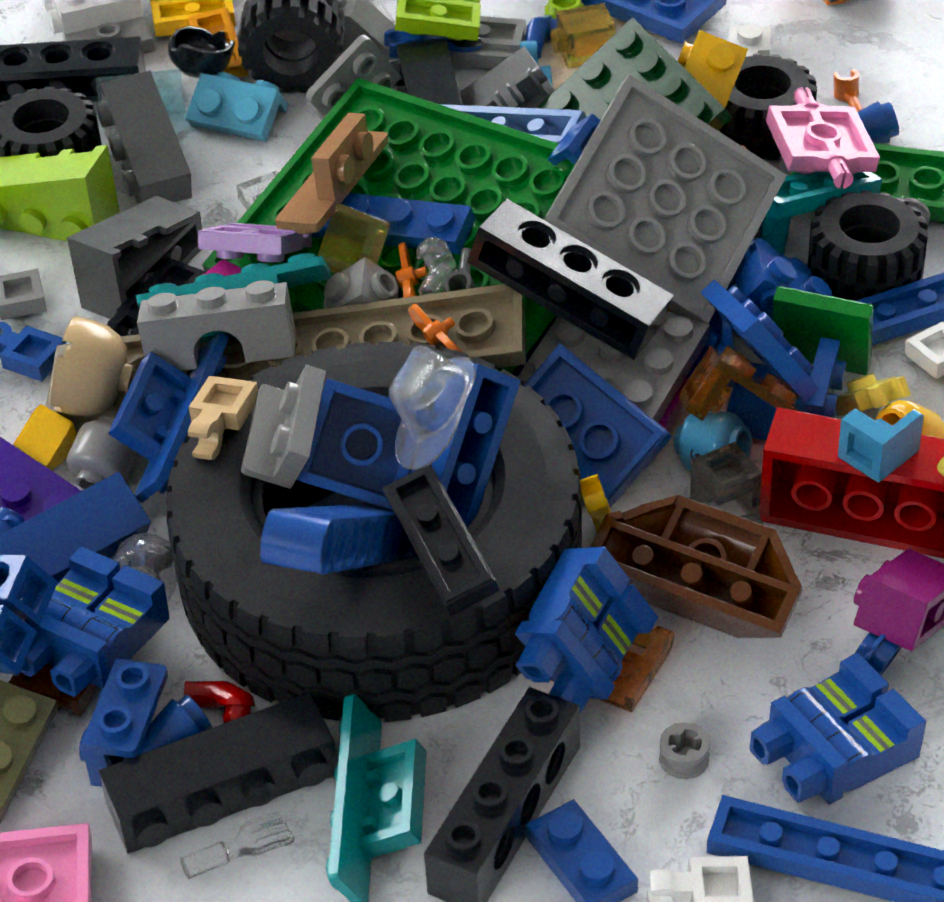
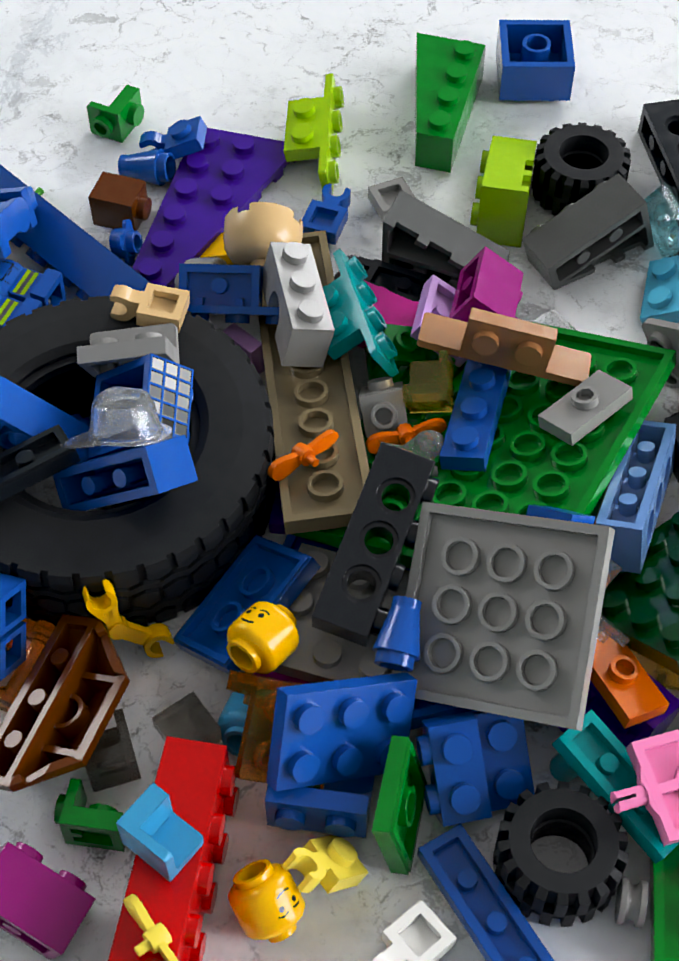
camera: 80 degrees right, 10 degrees up
(235, 200) = (488, 285): none -> magenta brick
(421, 136) = (585, 407): none -> light grey plate
(653, 381) = (262, 637): none -> yellow head
(673, 275) = (399, 638): none -> blue cone
(818, 566) = (85, 825): none -> green bracket

